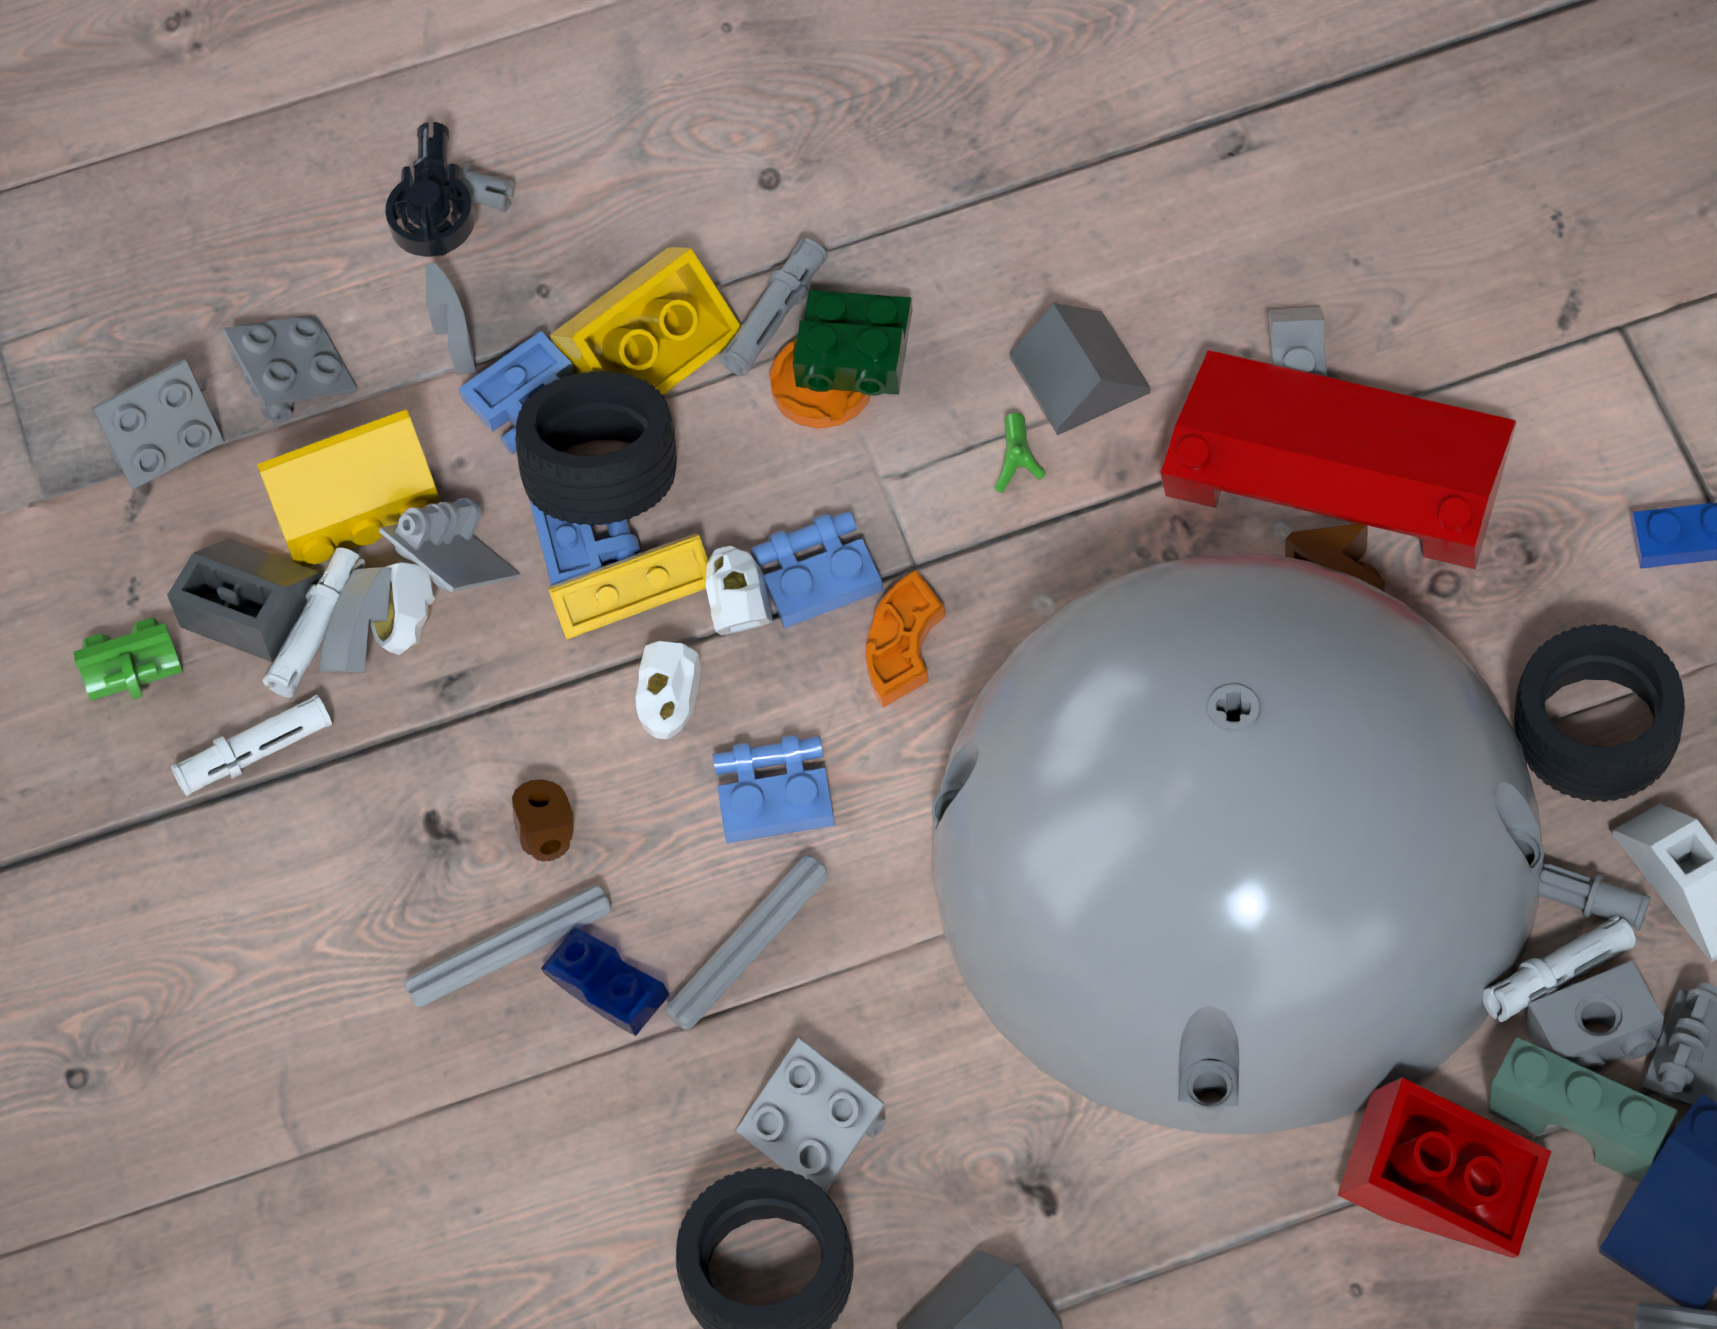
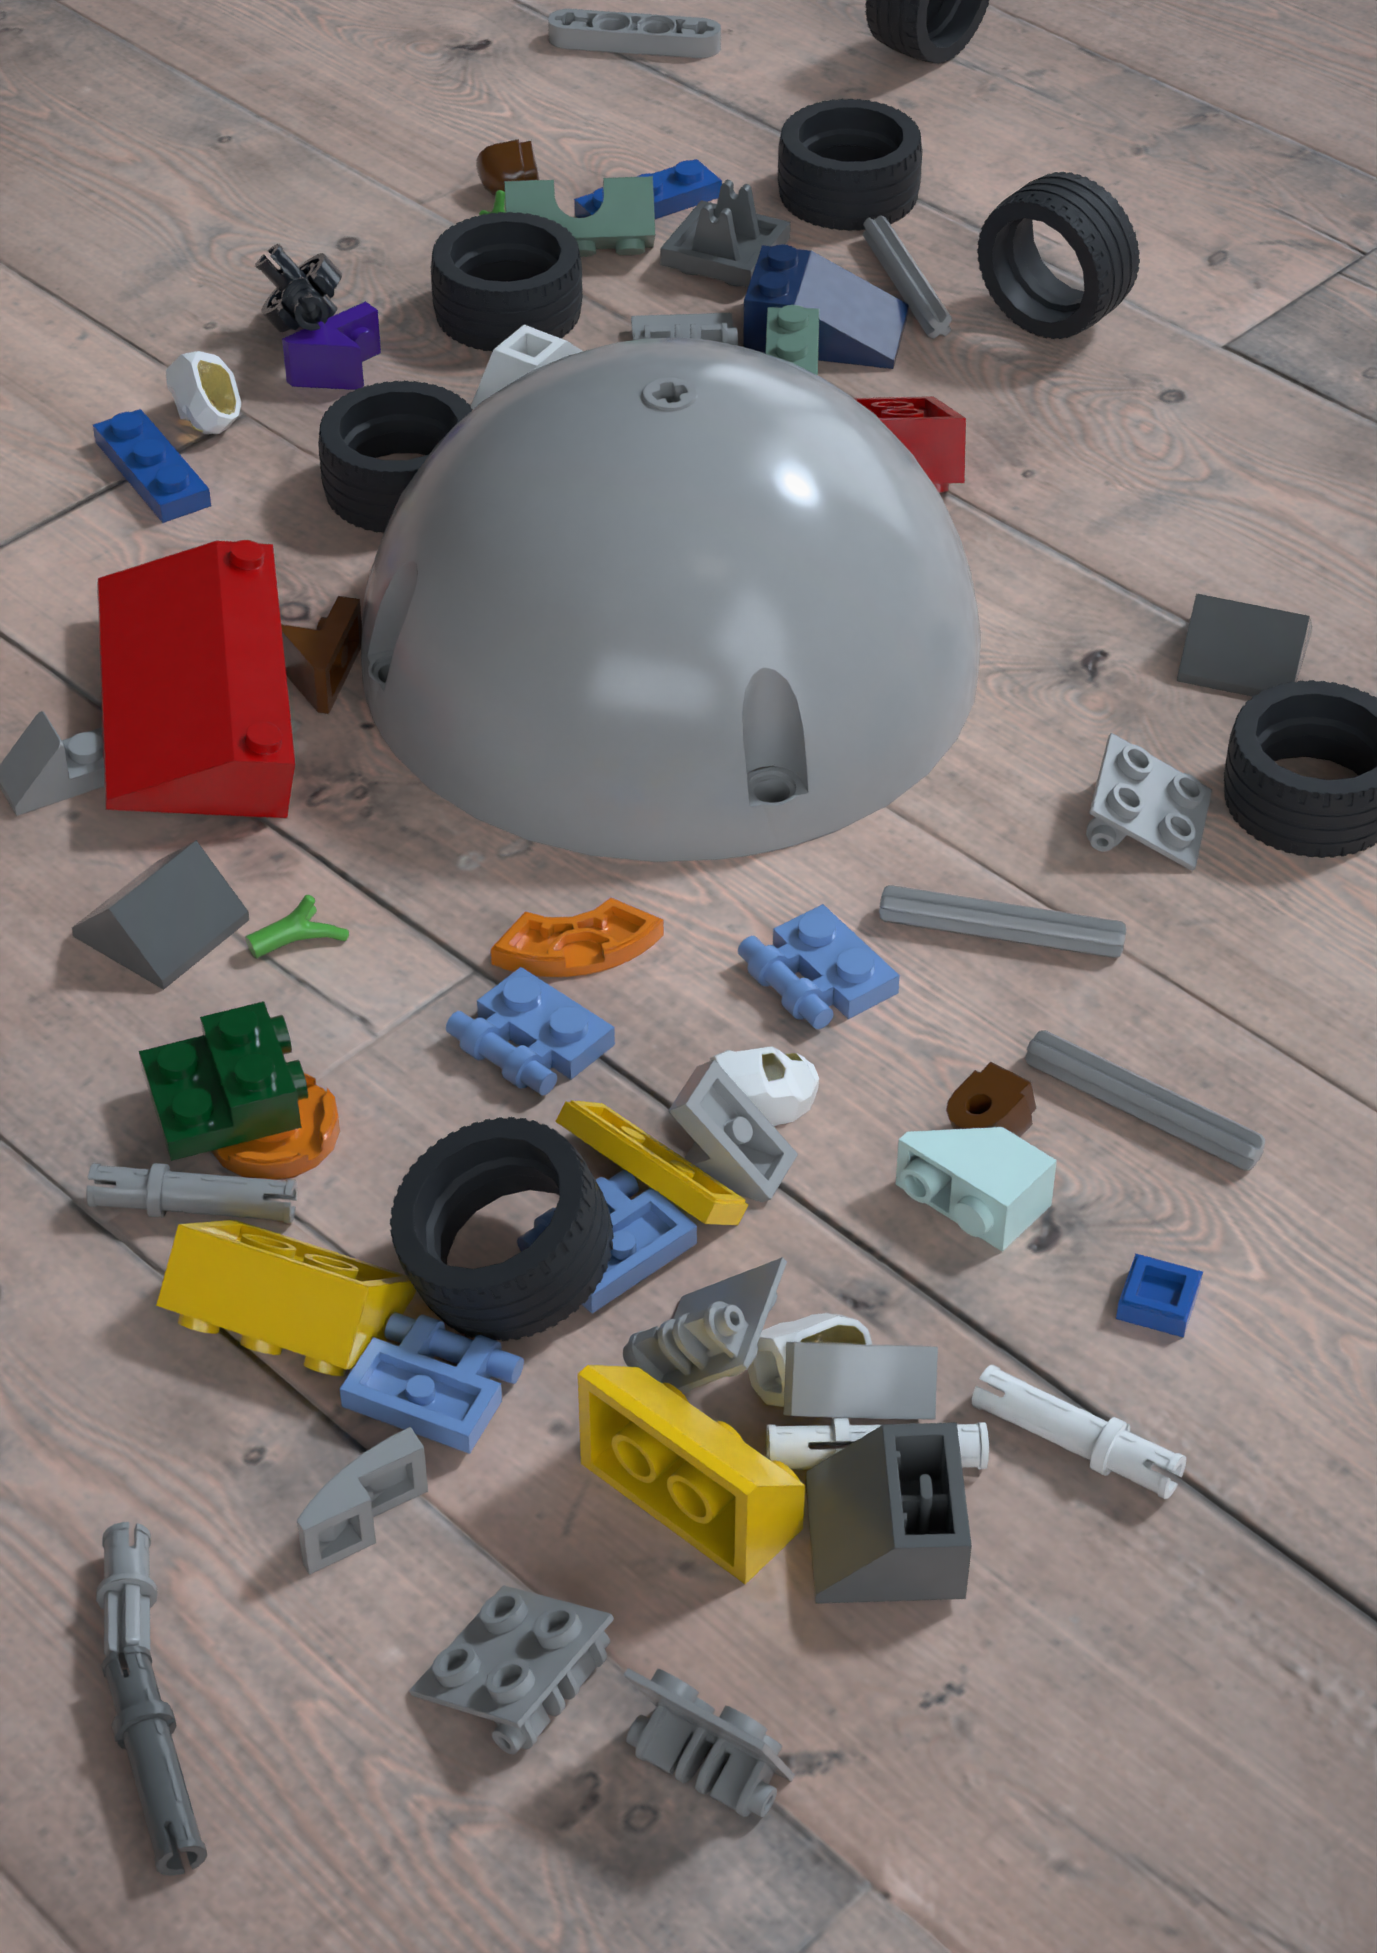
camera: 125 degrees left, 15 degrees down
(128, 660) = (1080, 1634): bright green hips -> none
(330, 166) = (145, 1730): none -> dark grey pin
(334, 863) = (1159, 1295): none -> blue tile
(429, 200) = (190, 1574): black pin -> none
(482, 781) = (978, 1179): none -> light aqua slope
(604, 982) = (1124, 1006): clear blue slope -> none
(617, 638) = (731, 1135): none -> light grey slope
(736, 591) = (616, 1059): white rock -> none

